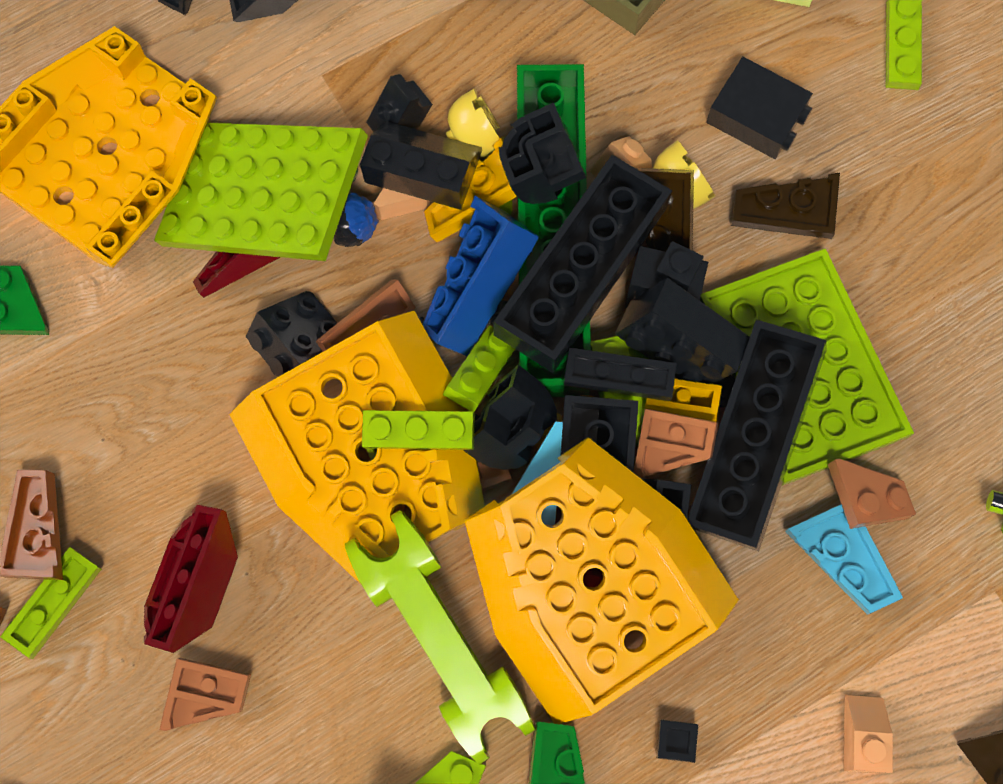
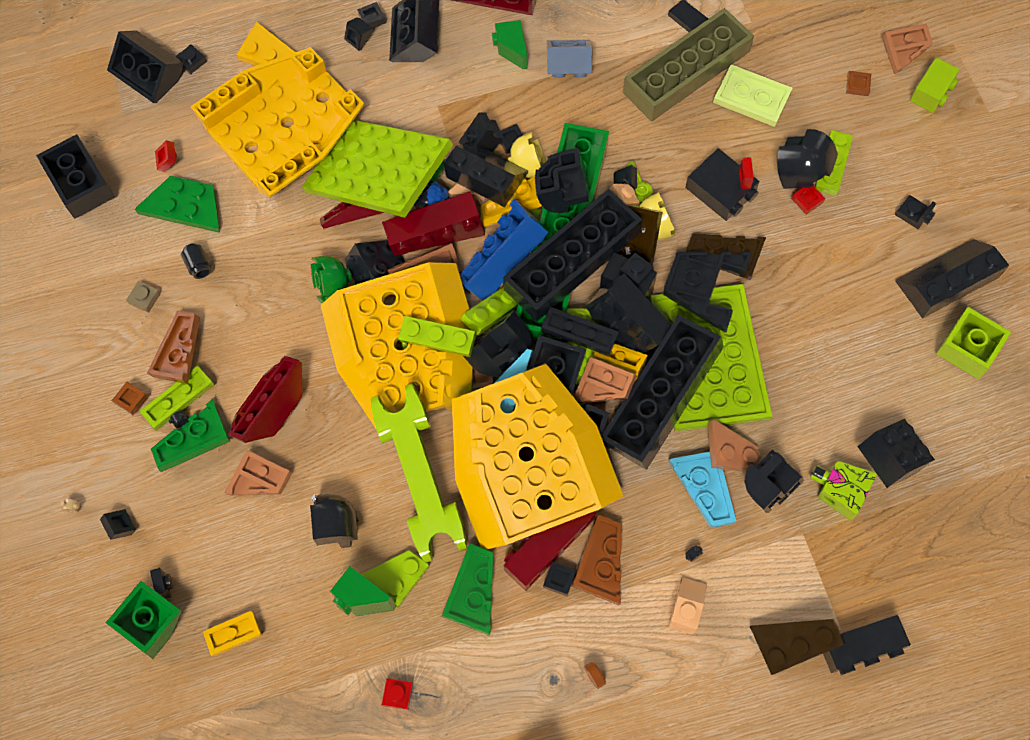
camera: 15 degrees right, 5 degrees down
(25, 387) = (196, 261): none -> black brick
(41, 39) = (262, 47): none -> yellow wing
(62, 633) = (178, 419): none -> black piece
(94, 656) = (195, 438): none -> green wing
(231, 369) = (328, 275): none -> green cylinder
(332, 736) = (333, 520): none -> black brick
(367, 258) = (434, 225): none -> dark red wedge
(442, 98) = (510, 135): none -> black plate
(620, 126) = (626, 176): none -> black plate
(640, 711) = (543, 549): none -> dark red brick
(648, 137) = (643, 189): none -> lime plate
(727, 700) = (600, 562): none -> dark orange wing
(758, 261) = (694, 280): none -> black wing
(794, 86) = (746, 173): none -> red tile
(854, 657) = (694, 553): none -> black piece
(869, 47) = (806, 159): none -> black brick
(882, 102) = (808, 199): none -> red plate
(938, 529) = (771, 481): none -> black brick

